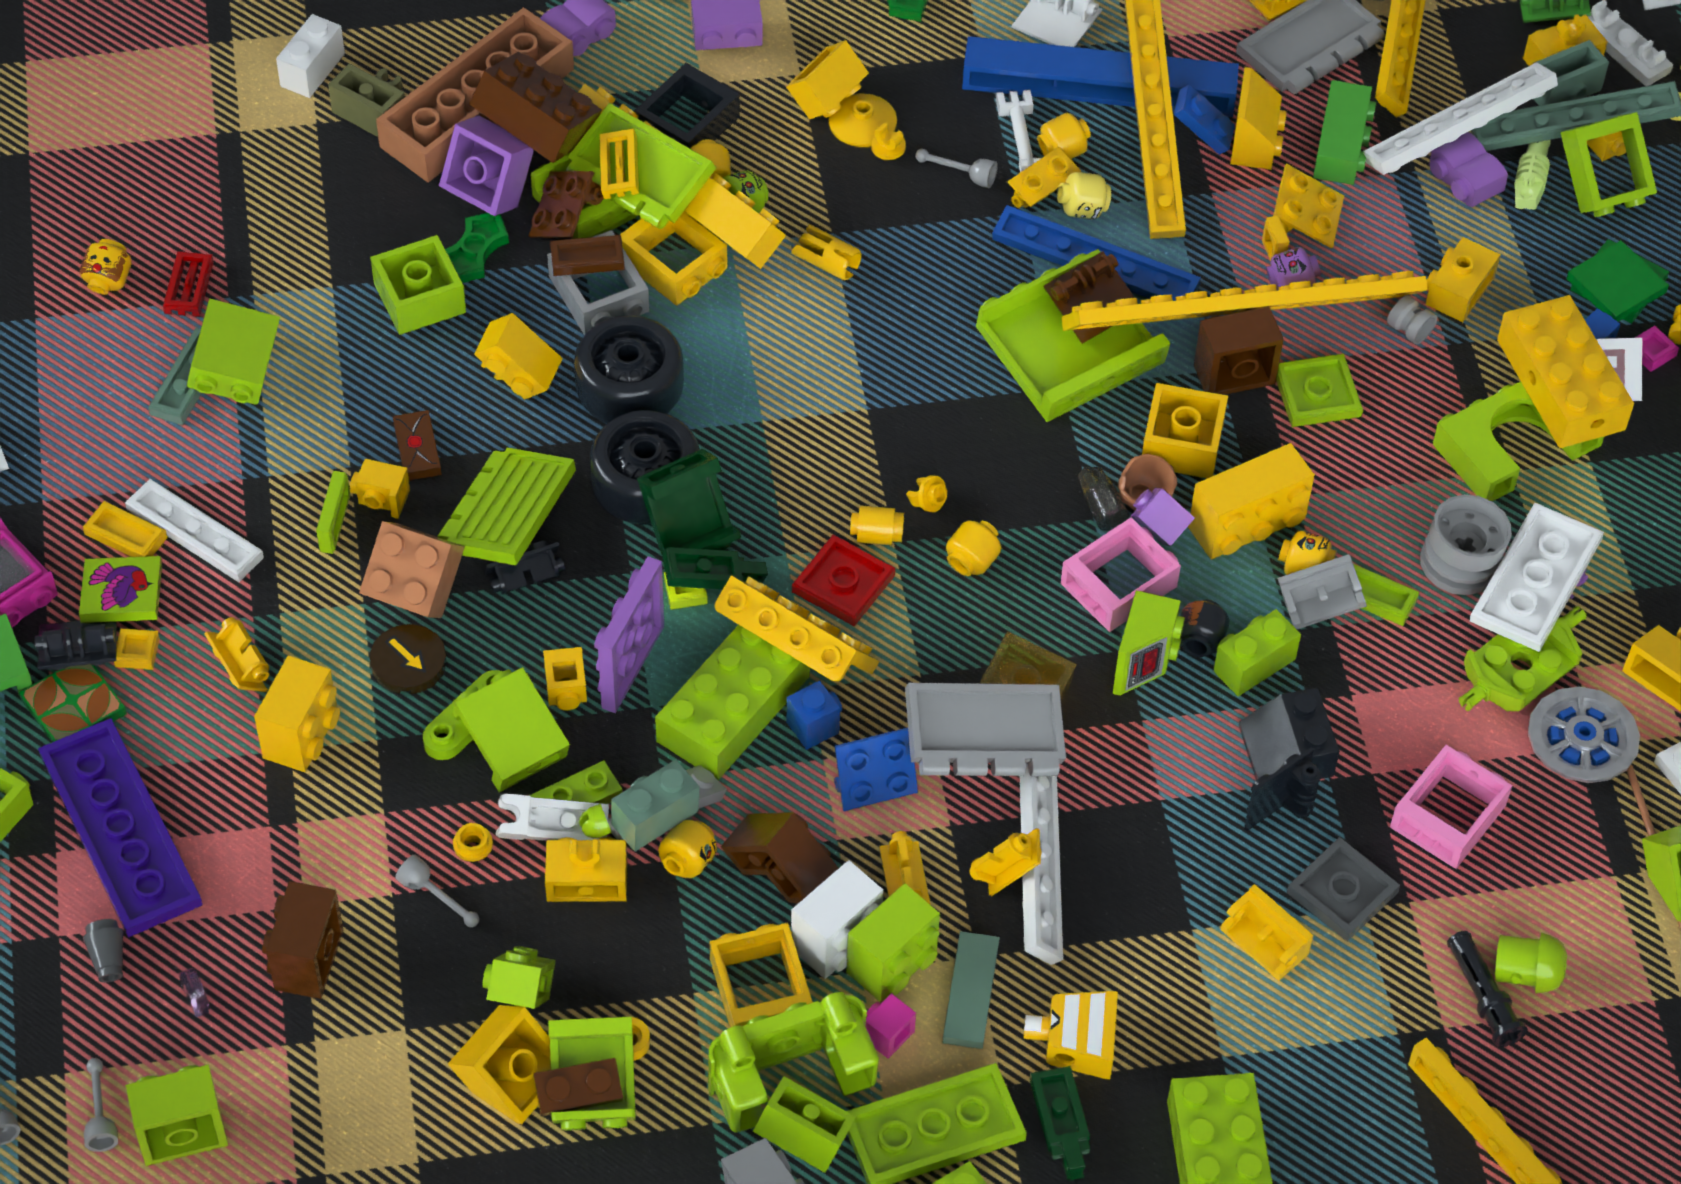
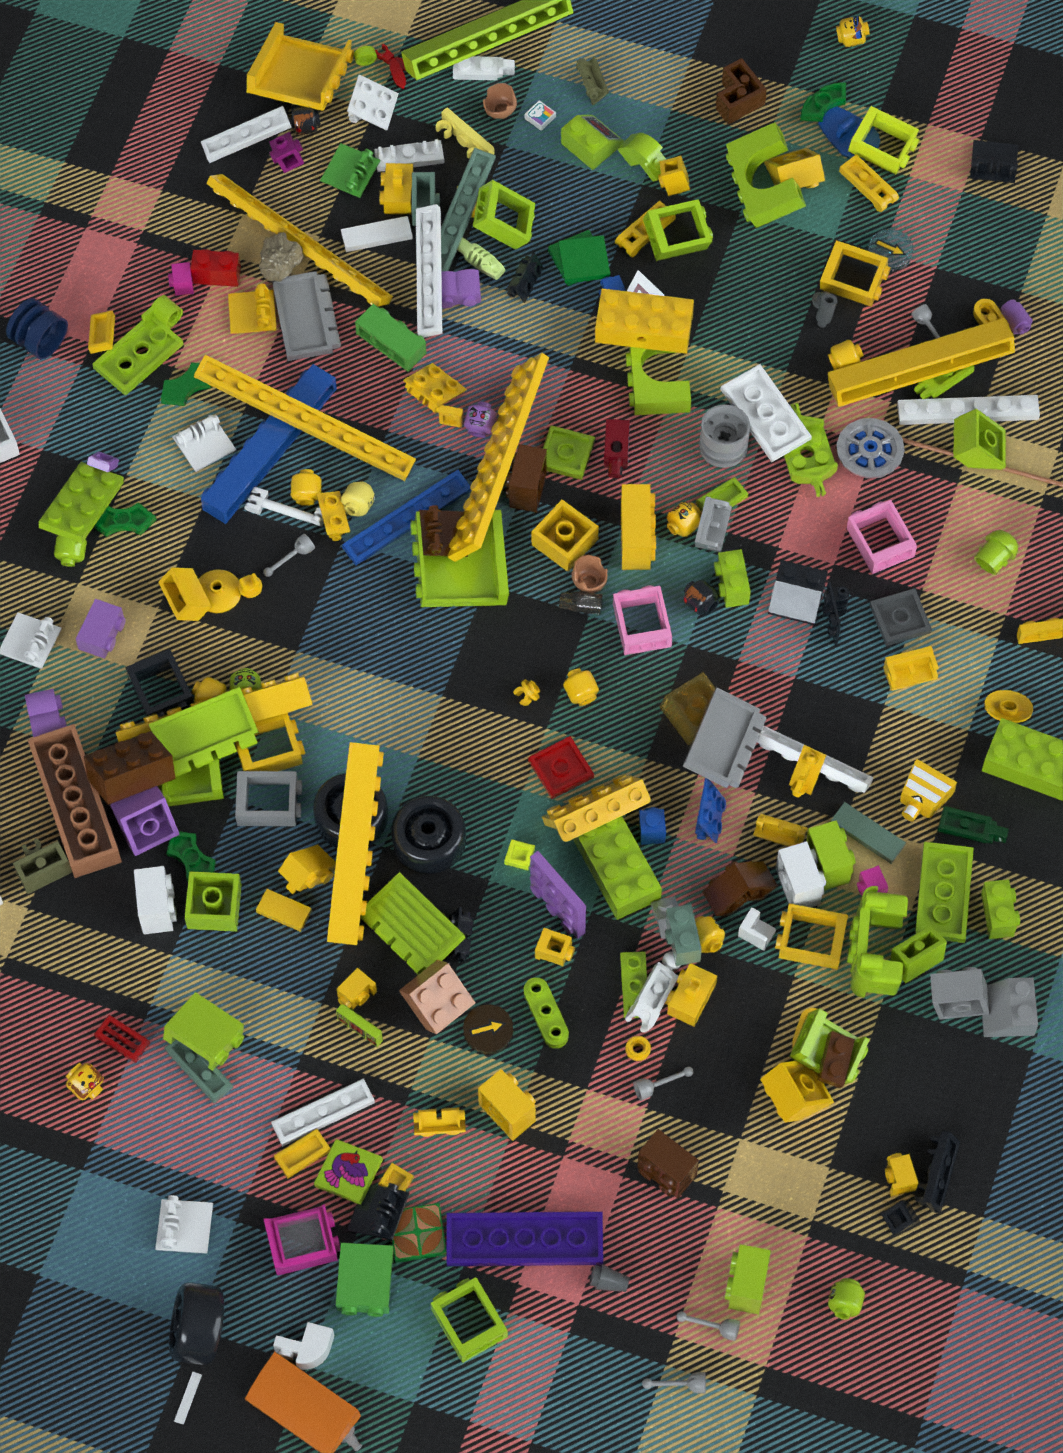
camera: 60 degrees left, 10 degrees up
(194, 992) = (662, 1240): clear purple tile -> none
(381, 219) = (155, 900): none -> white brick
(417, 444) = (330, 957): reddish brown tile -> none
(455, 369) = (283, 910): none -> yellow tile
(511, 727) = (577, 990): lime panel -> none
(519, 978) = (754, 1058): lime brick -> none
(562, 203) = (200, 789): reddish brown hinge -> none
(568, 376) = (353, 844): none -> yellow brick
(587, 255) = (253, 793): reddish brown tile -> none
(594, 822) = (670, 972): lime hinge -> none
(620, 186) = (218, 750): yellow tile -> none
(688, 504) = (479, 825): dark green panel -> none
(708, 568) = (522, 834): dark green hinge -> none
(733, 906) = (755, 930): none -> white panel
(827, 252) = (322, 657): yellow arm -> none
(877, 525) = (537, 729): yellow brick -> none
(1148, 641) = (699, 629): lime slope -> none
(1161, 515) = (619, 577): medium lavender brick -> none
(1204, 119) = (341, 404): blue plate -> none
(1257, 123) = (360, 380): yellow slope -> none
(1287, 1084) = (1009, 706): none -> yellow dish
(1360, 431) = (616, 446): none -> dark red torso
(1409, 317) = (551, 377): light grey wheel -> none
(1461, 279) = (534, 334): yellow brick -> none
(1476, 53) = (376, 234): none -> white tile
(1492, 1003) = (1008, 583): black pin -> none
(1543, 236) = (529, 270): none -> black hinge
(1656, 348) = (631, 266): dark pink tile -> none

